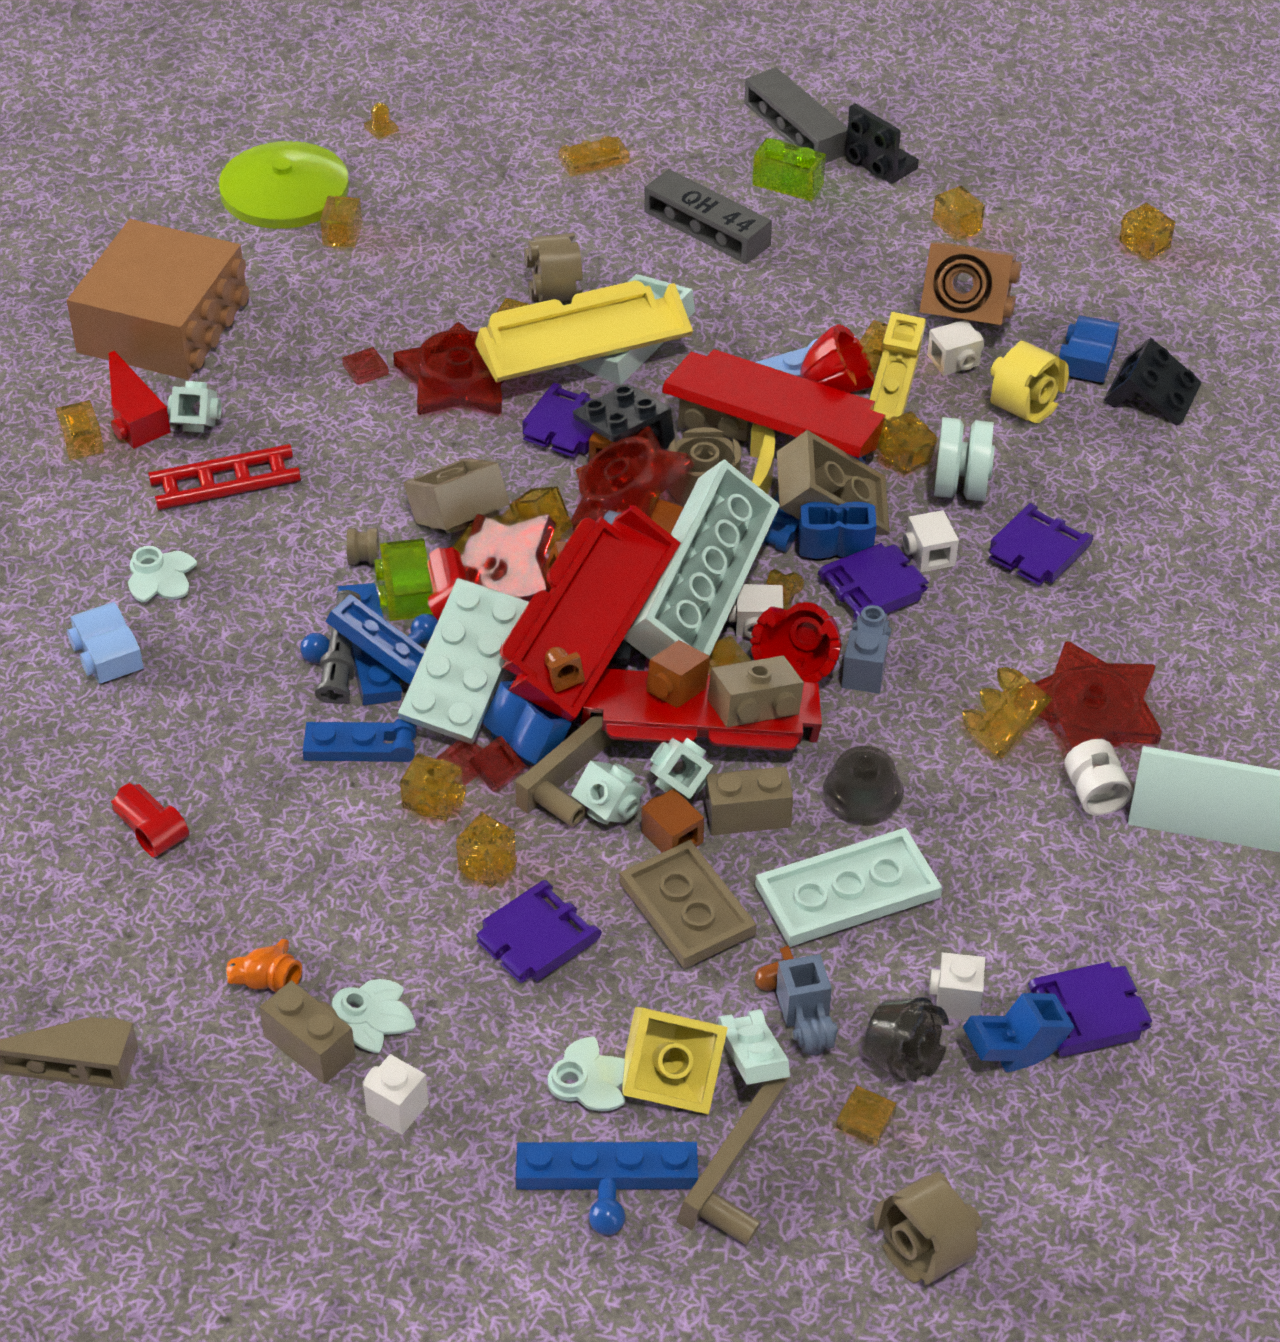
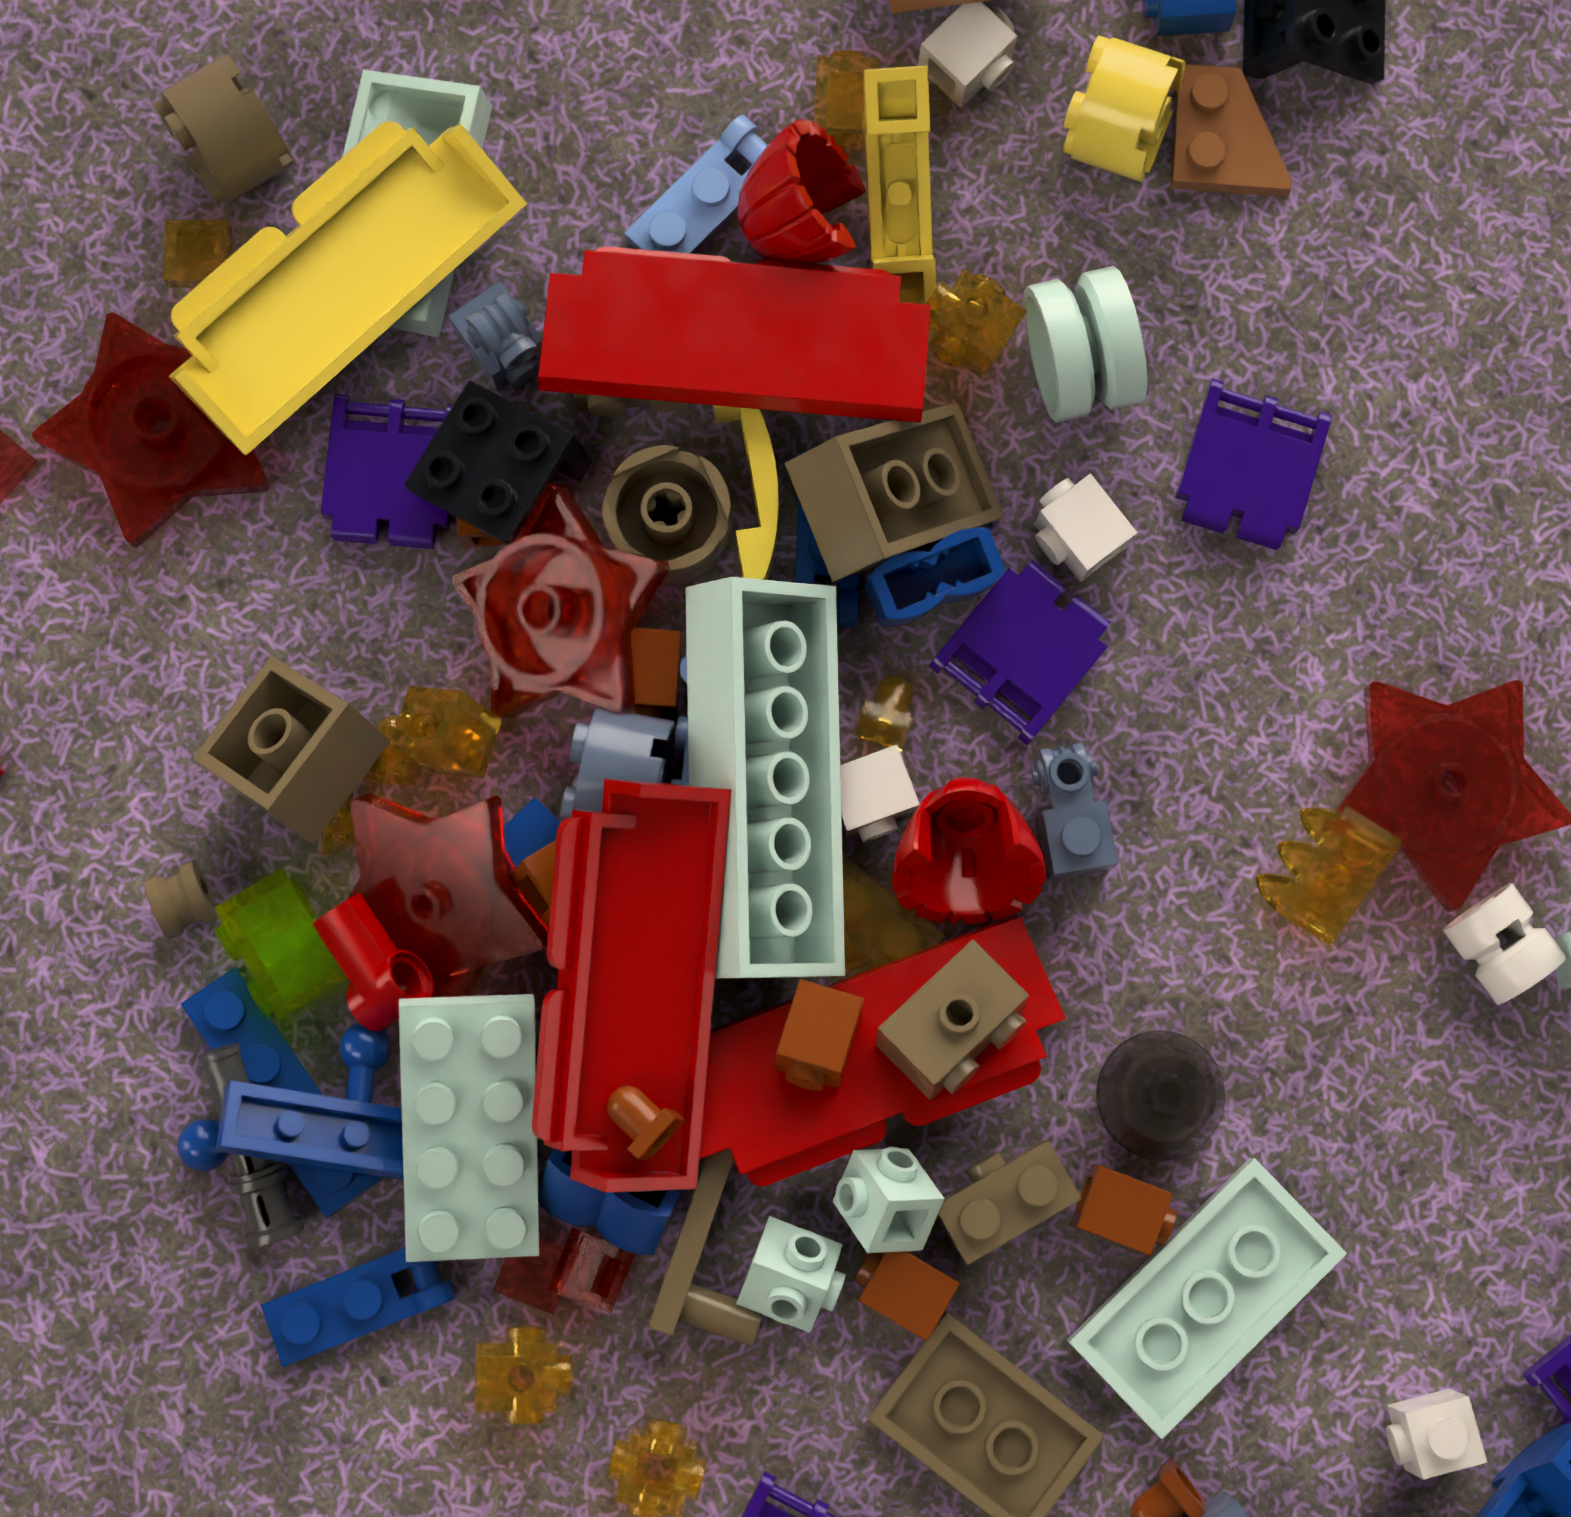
camera: 25 degrees left, 35 degrees up
(651, 371) = (499, 337): none -> sand blue brick
(815, 826) = (1124, 1210): none -> dark orange brick
(1081, 420) = (1222, 137): none -> medium nougat wing

